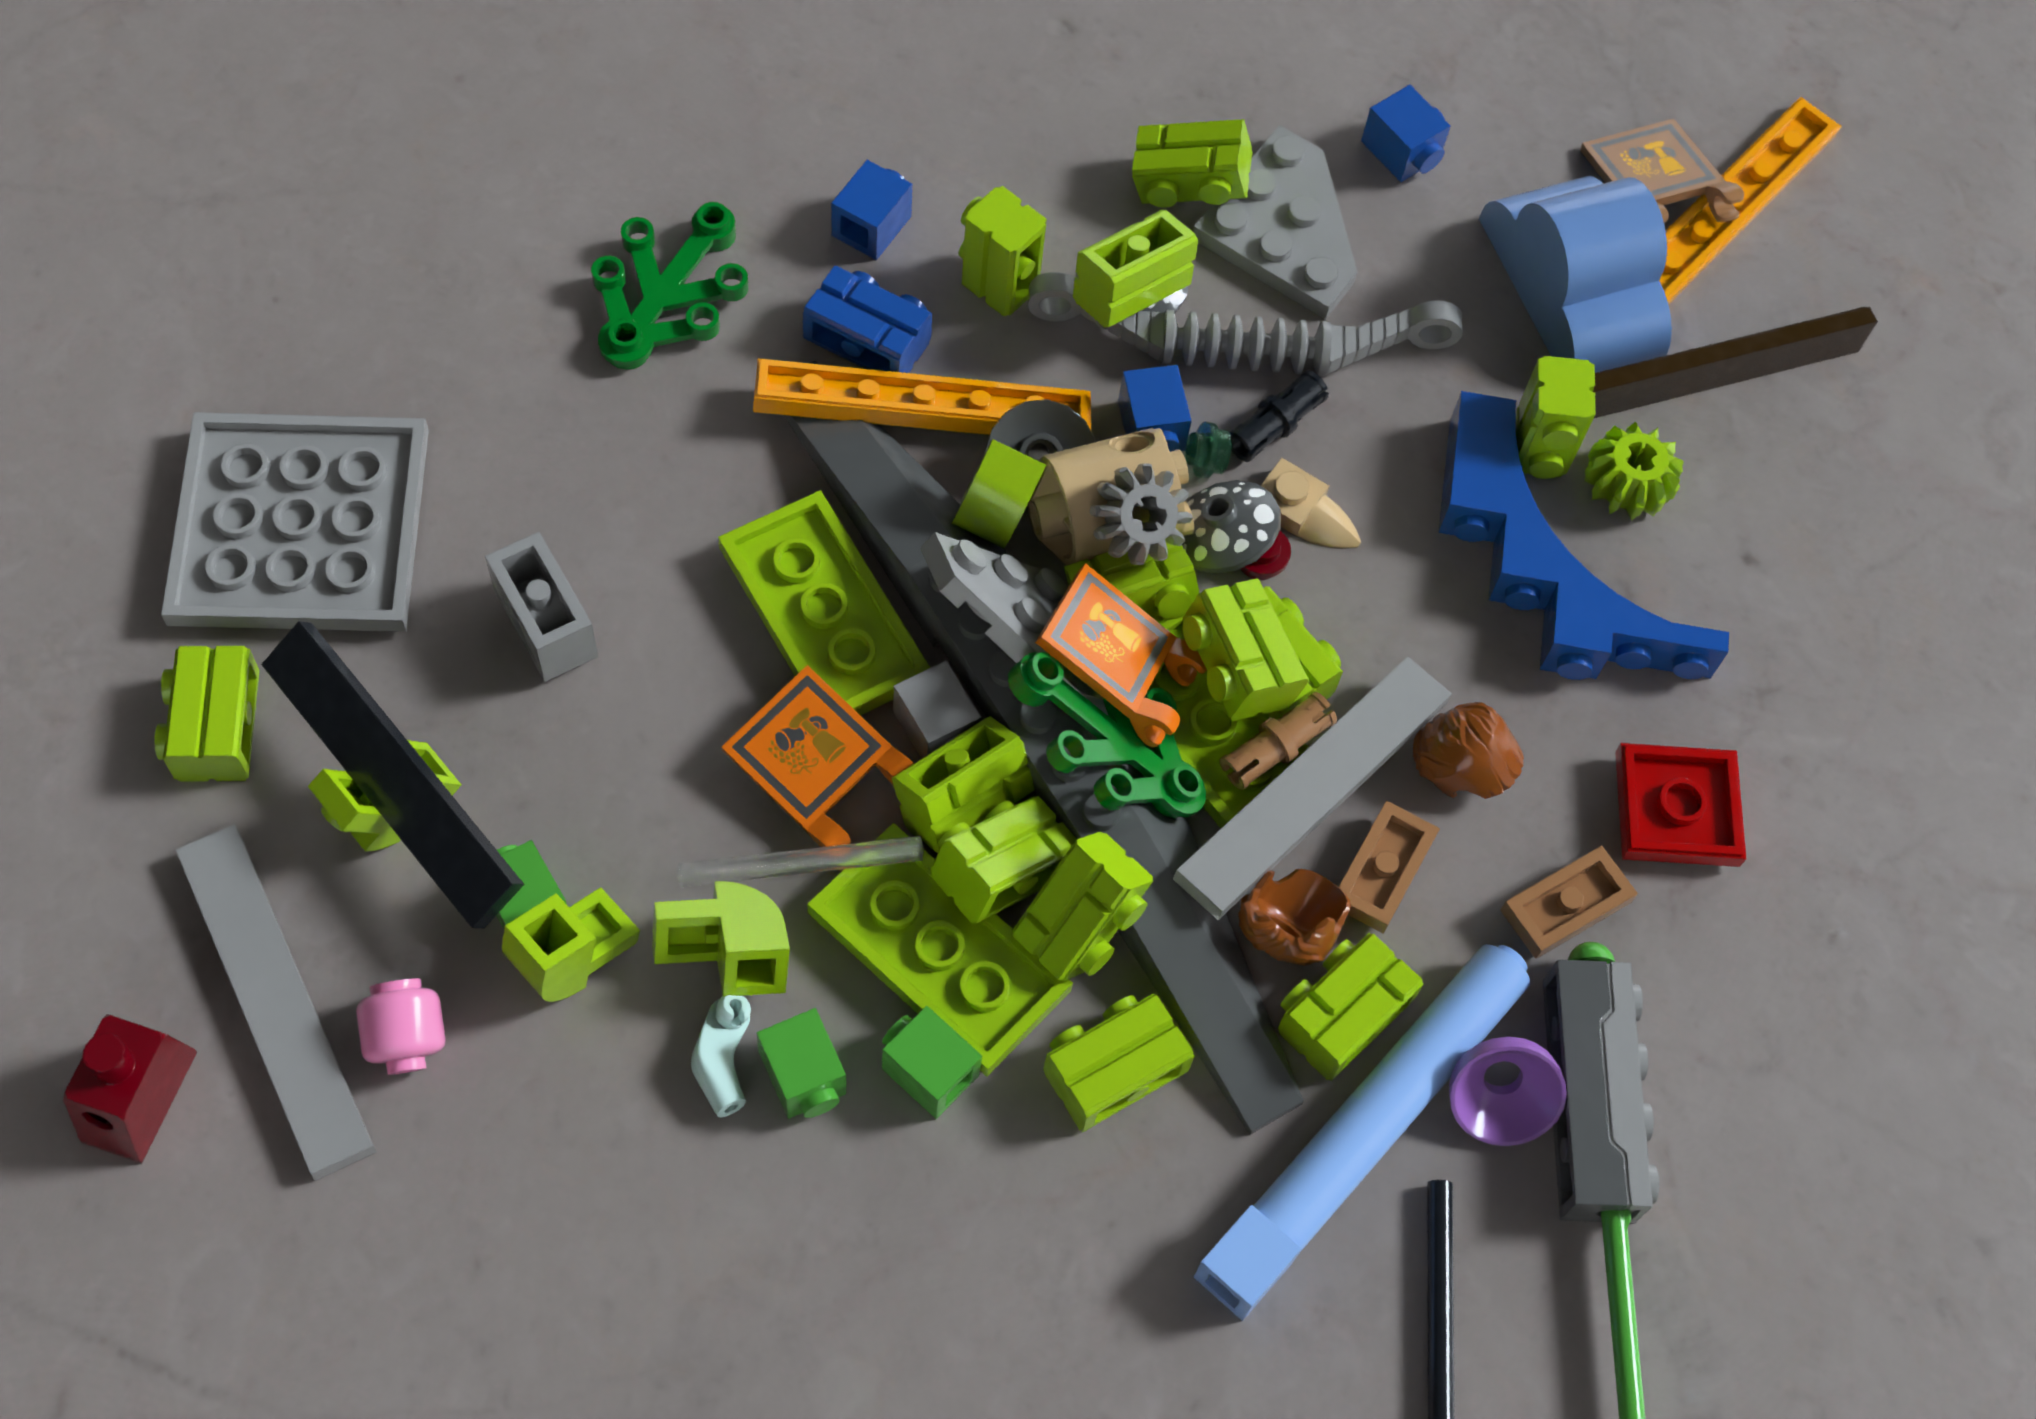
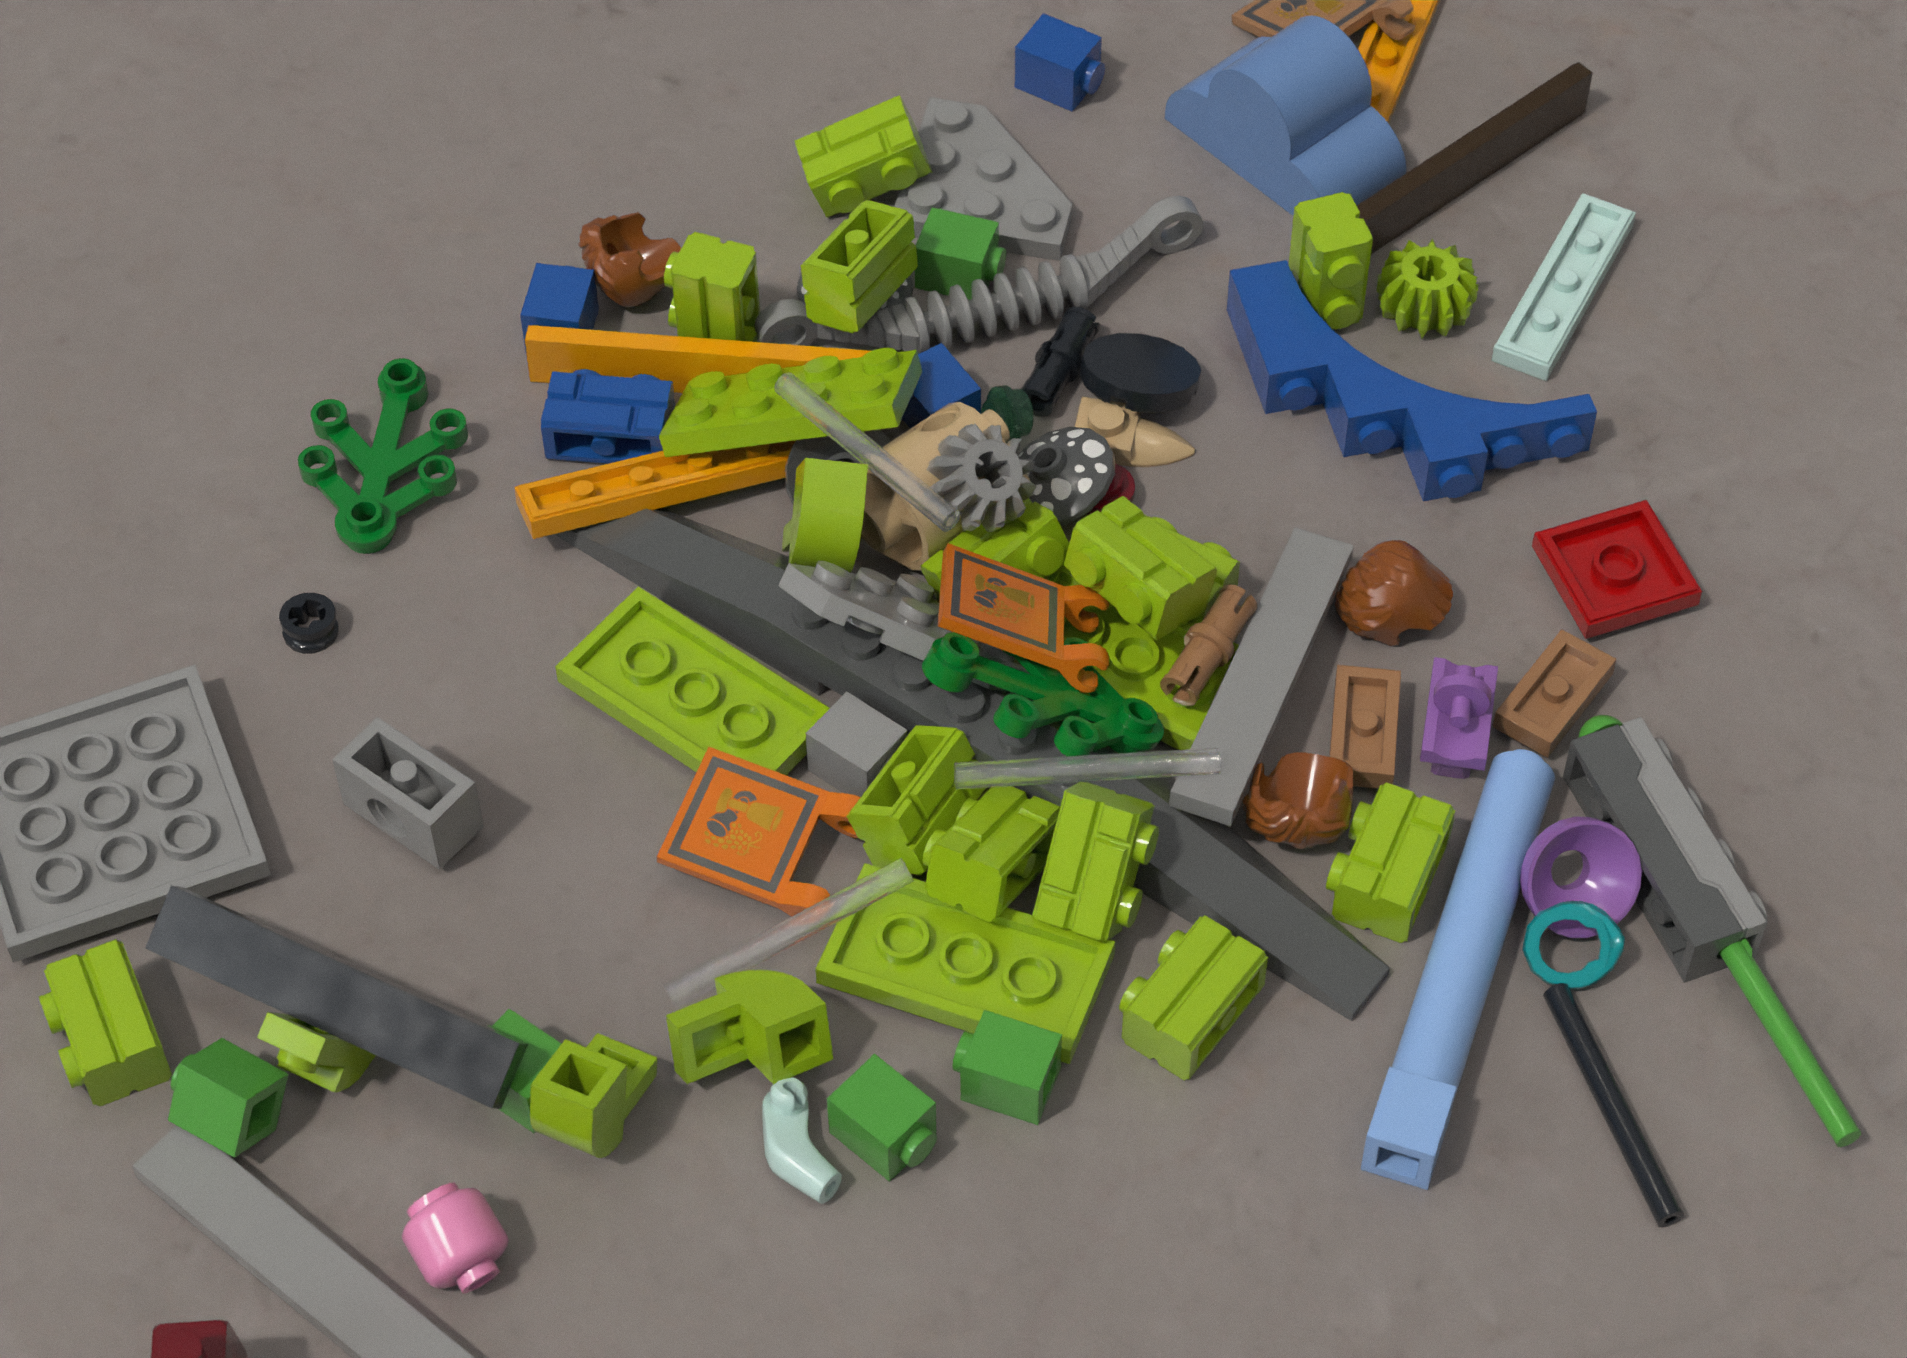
camera: 15 degrees left, 10 degrees down
(273, 822) = (227, 1096): none -> bright green brick
(542, 428) = (320, 632): none -> black bush
(946, 179) = (624, 259): none -> dark orange hair
(976, 308) = (662, 356): none -> light orange tile
(1022, 373) = (746, 410): none -> lime plate
(1053, 452) = (867, 452): none -> clear piece
(1112, 821) = (1087, 768): none -> clear piece
(1234, 282) = (957, 251): none -> bright green brick
(1342, 454) = (1142, 370): none -> black tile
(1470, 892) = (1458, 718): none -> medium lavender hips
(1498, 1132) = (1589, 915): none -> teal piece
(1760, 513) = (1563, 287): none -> light aqua tile

